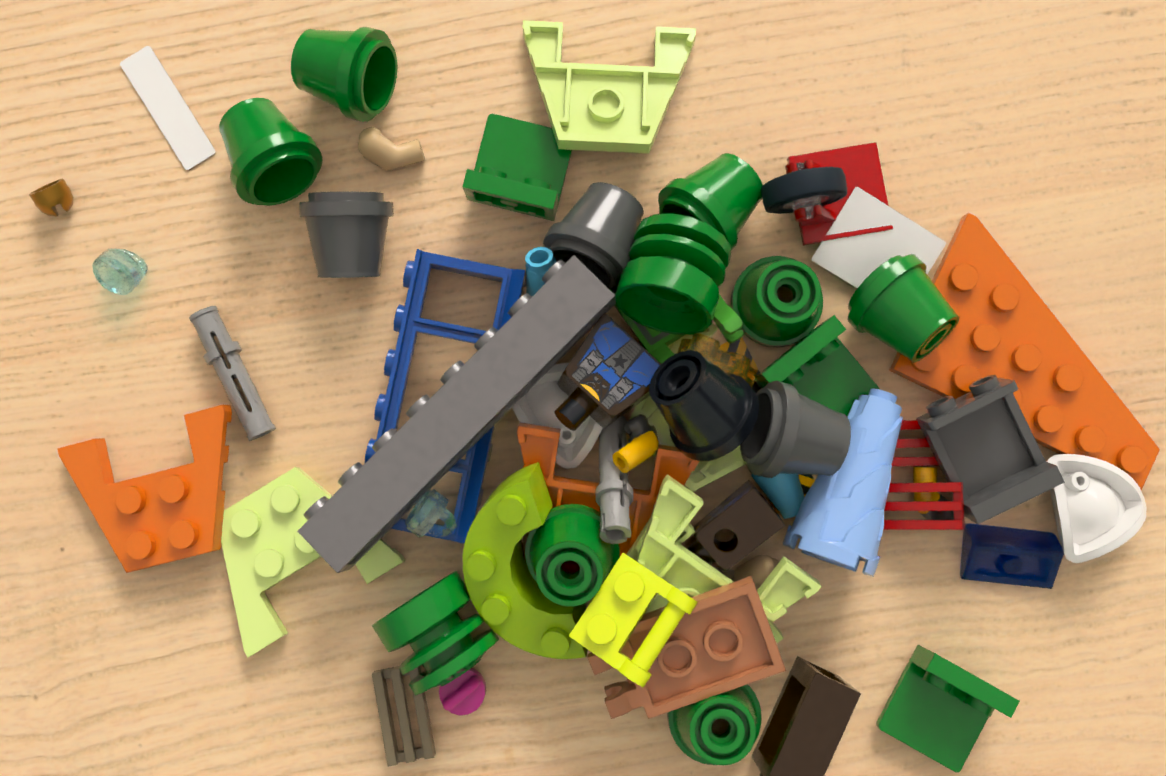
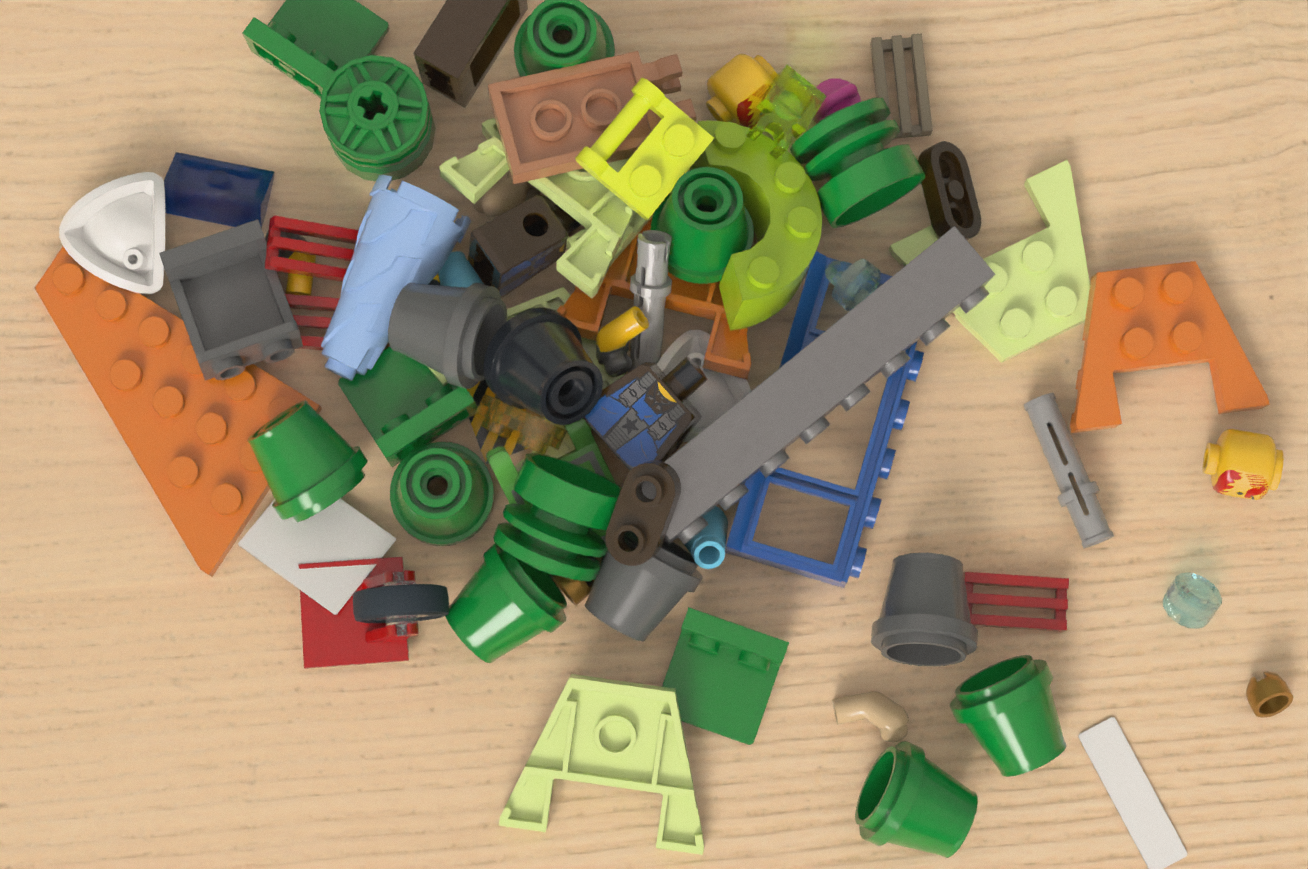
camera: 170 degrees left, 5 degrees down
(77, 392) = (1243, 464): none -> yellow head
(236, 257) = (1058, 604): none -> red tile
(351, 615) = (949, 190): none -> dark brown plate
(502, 677) = (788, 109): none -> clear neon green plate
(546, 694) = (739, 88): none -> yellow head
(603, 270) = (642, 515): none -> dark brown plate
(871, 606) = (392, 141): none -> green wheel

